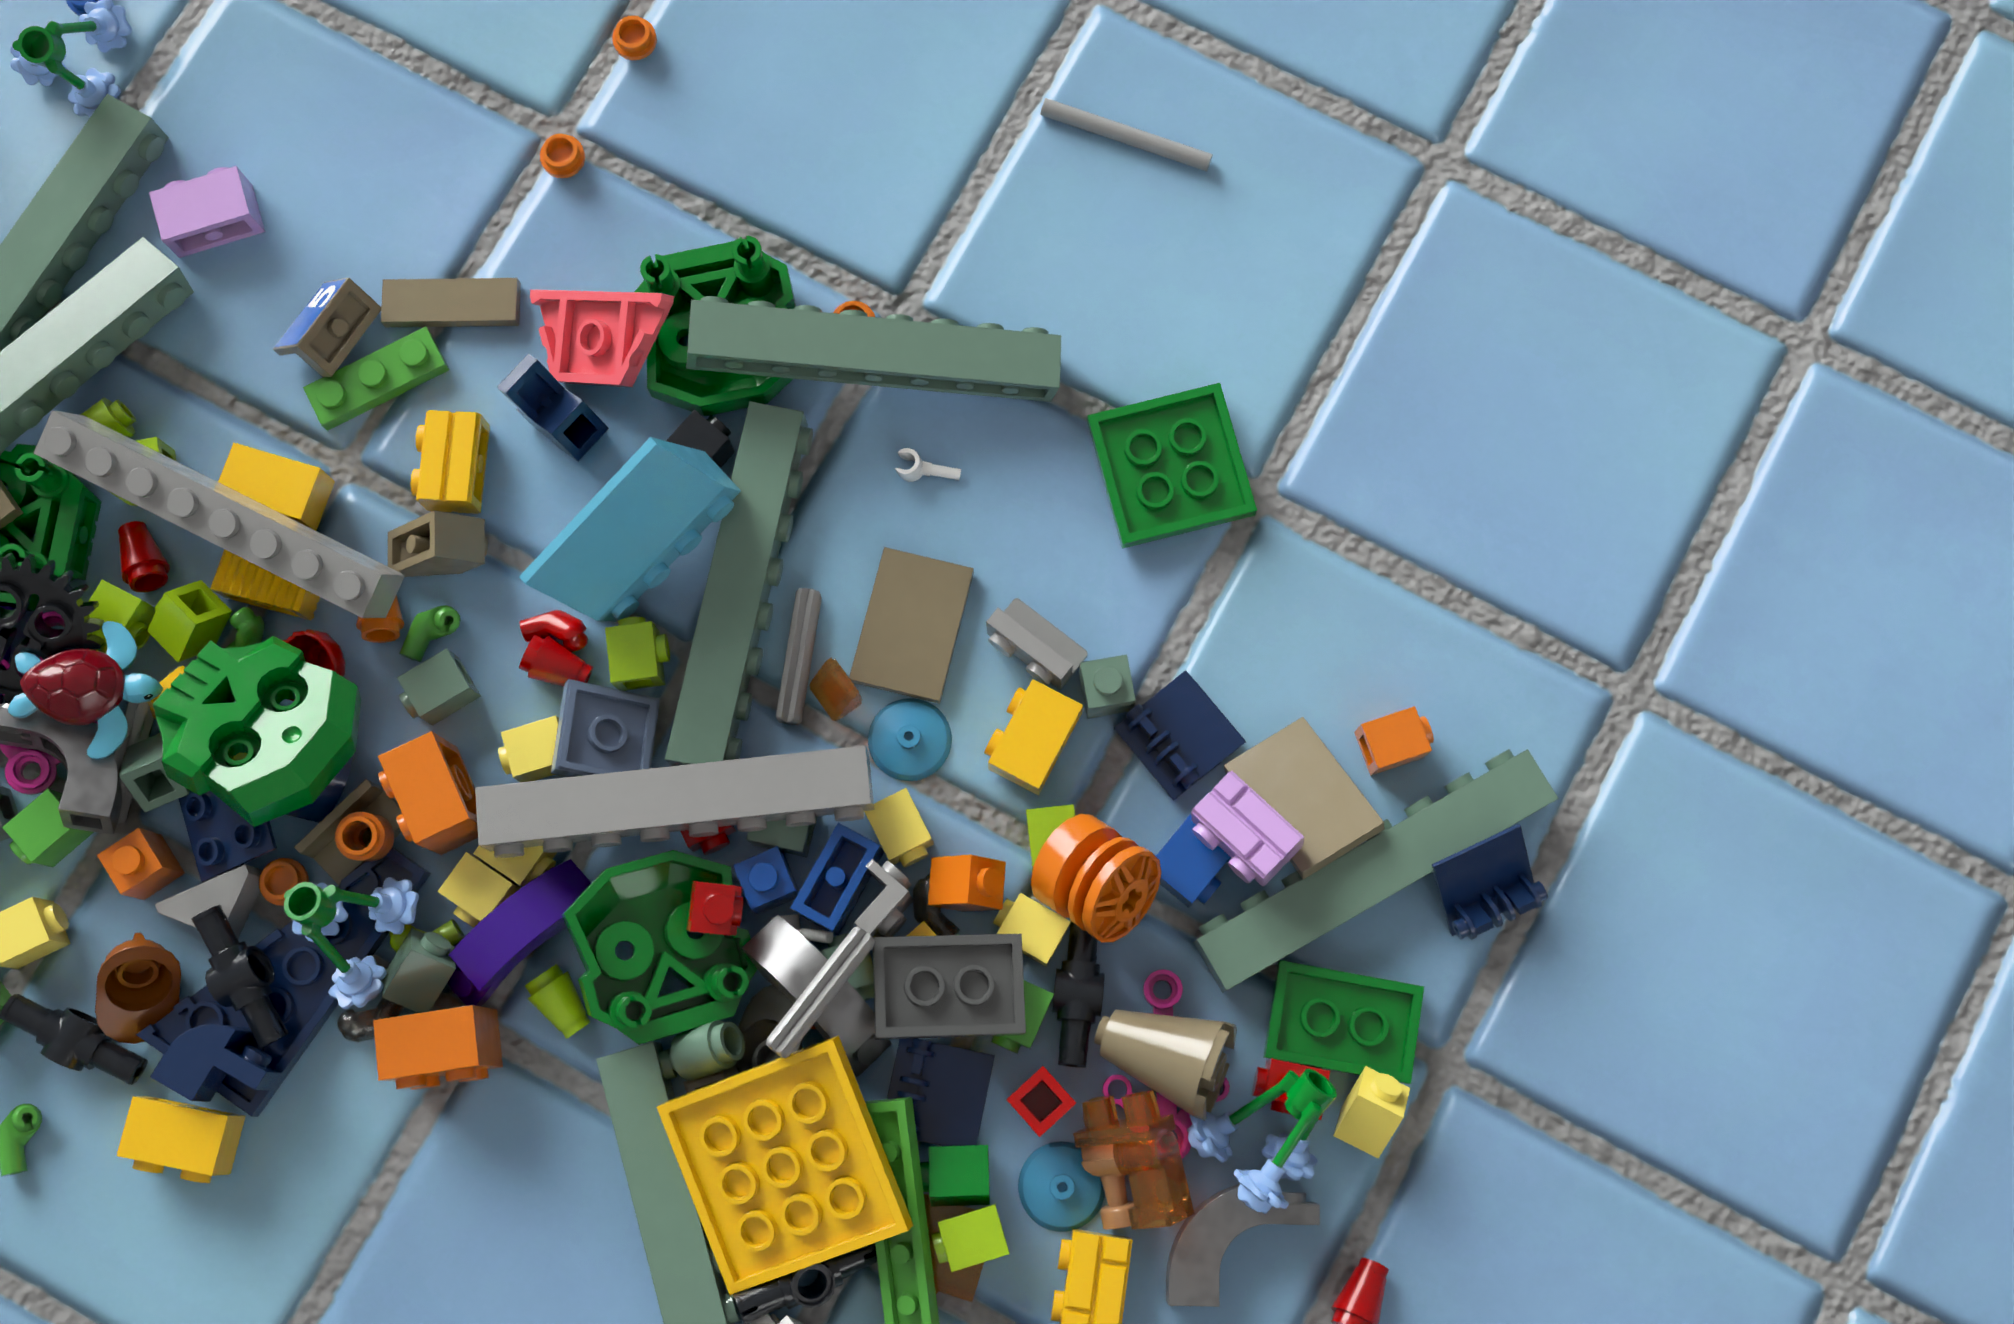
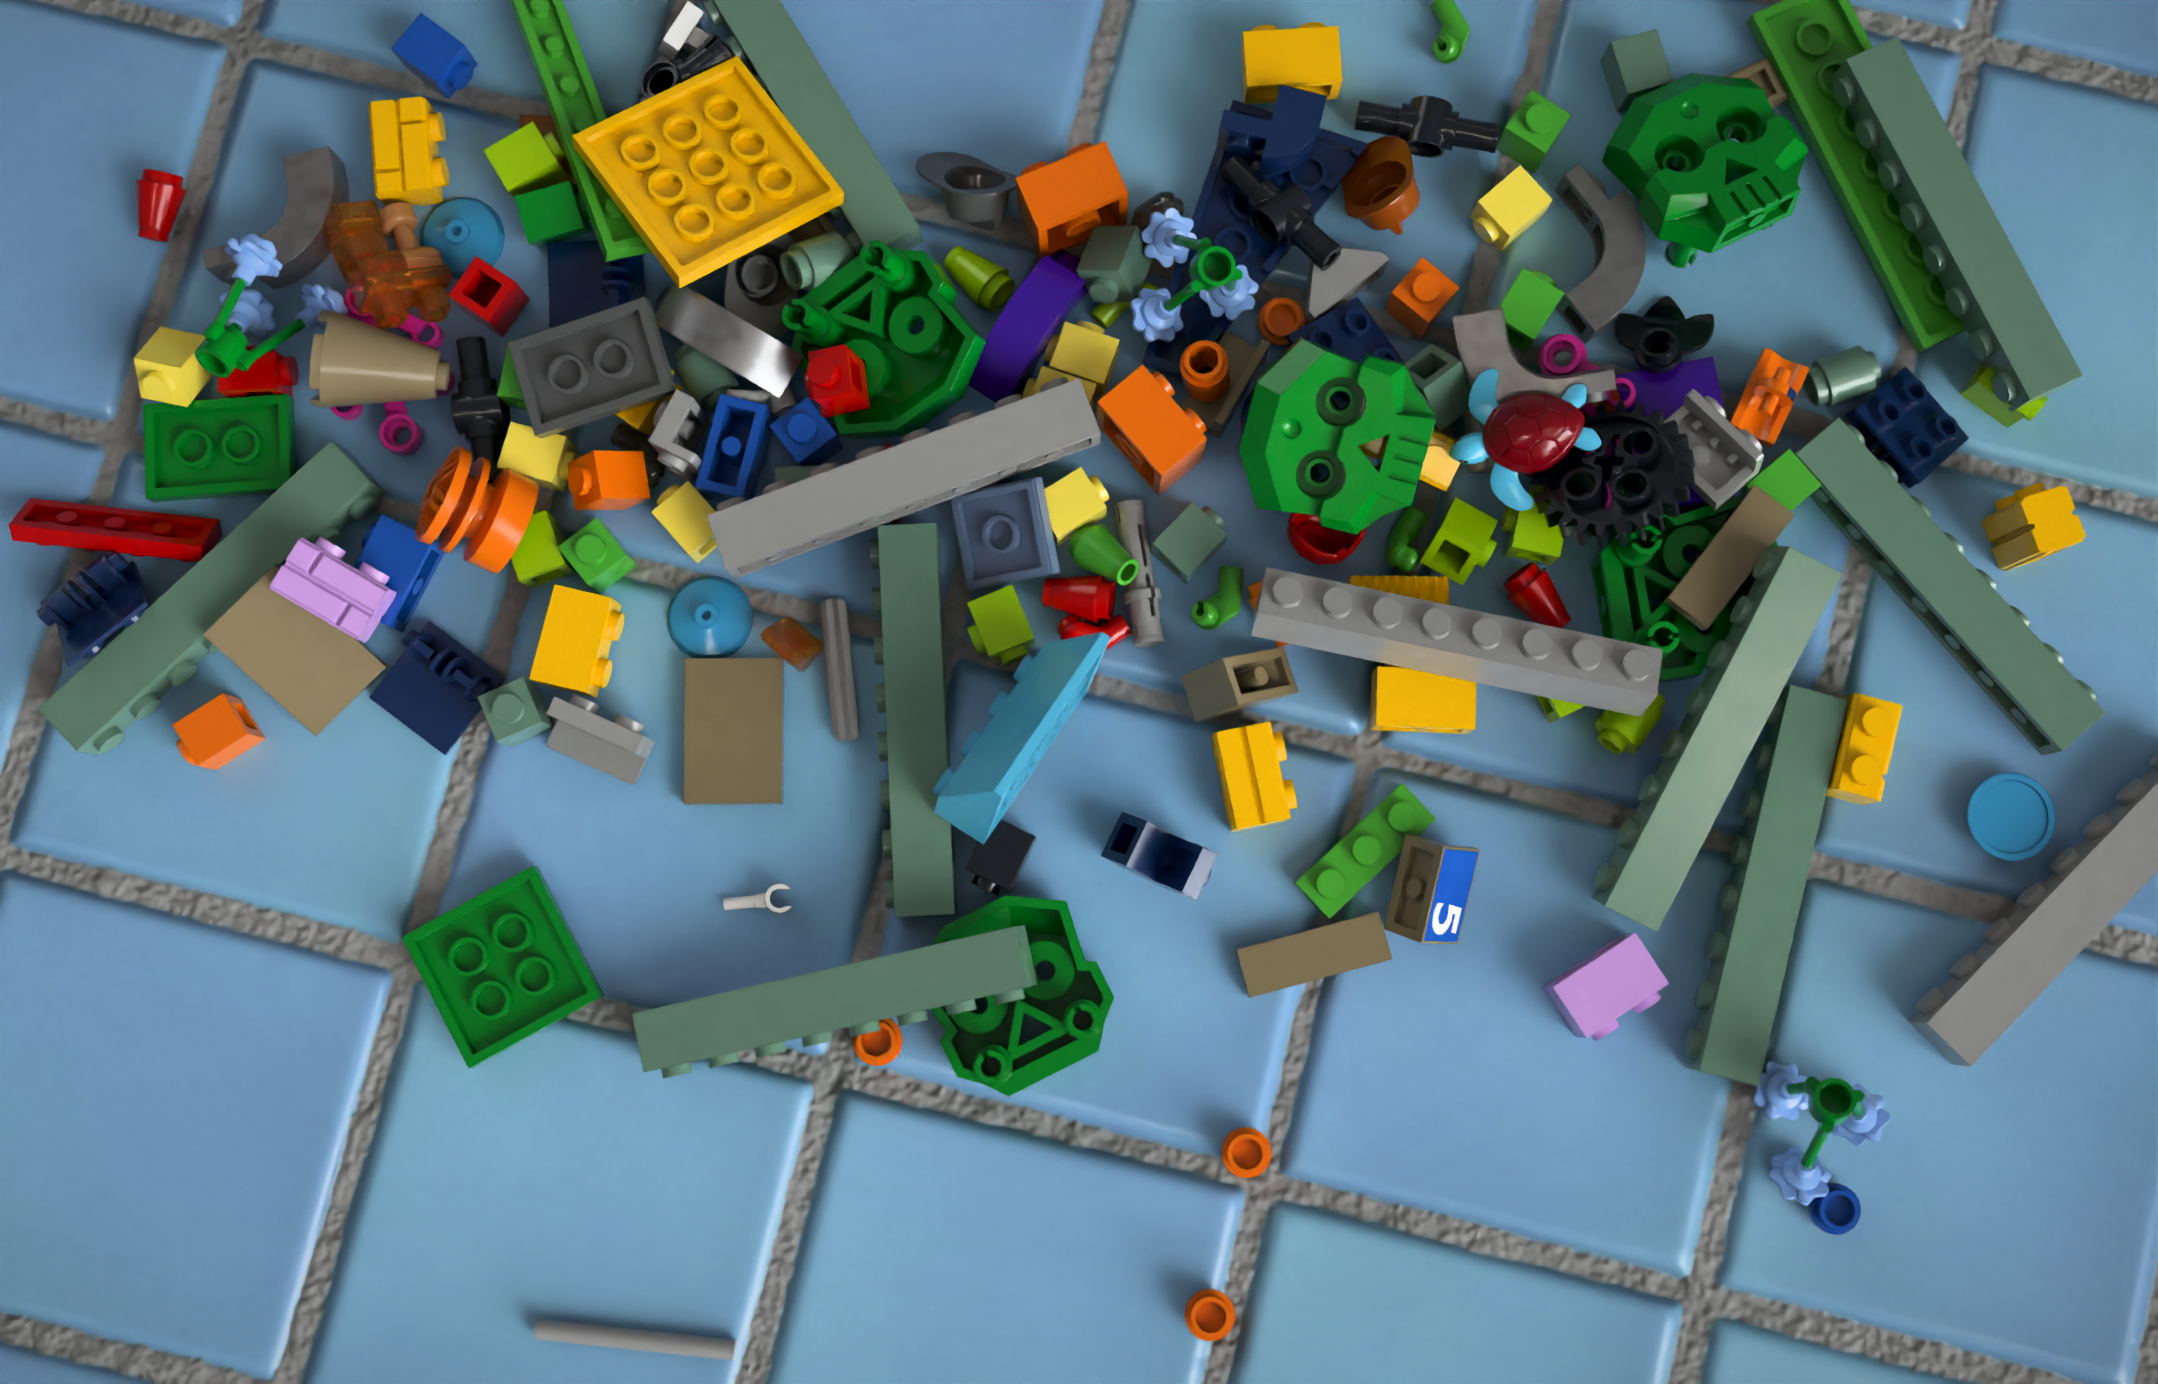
camera: 165 degrees right, 5 degrees up
(495, 673) = (1142, 592): none -> light grey pin
(520, 693) = (1101, 553): none -> bright green cone
(535, 1094) = (969, 187): none -> dark grey piece
(599, 333) = (1136, 949): coral wing -> none
(820, 992) = (704, 321): light grey axle -> none
(996, 815) = (597, 555): none -> bright green brick
(1460, 964) = (115, 529): none -> red plate

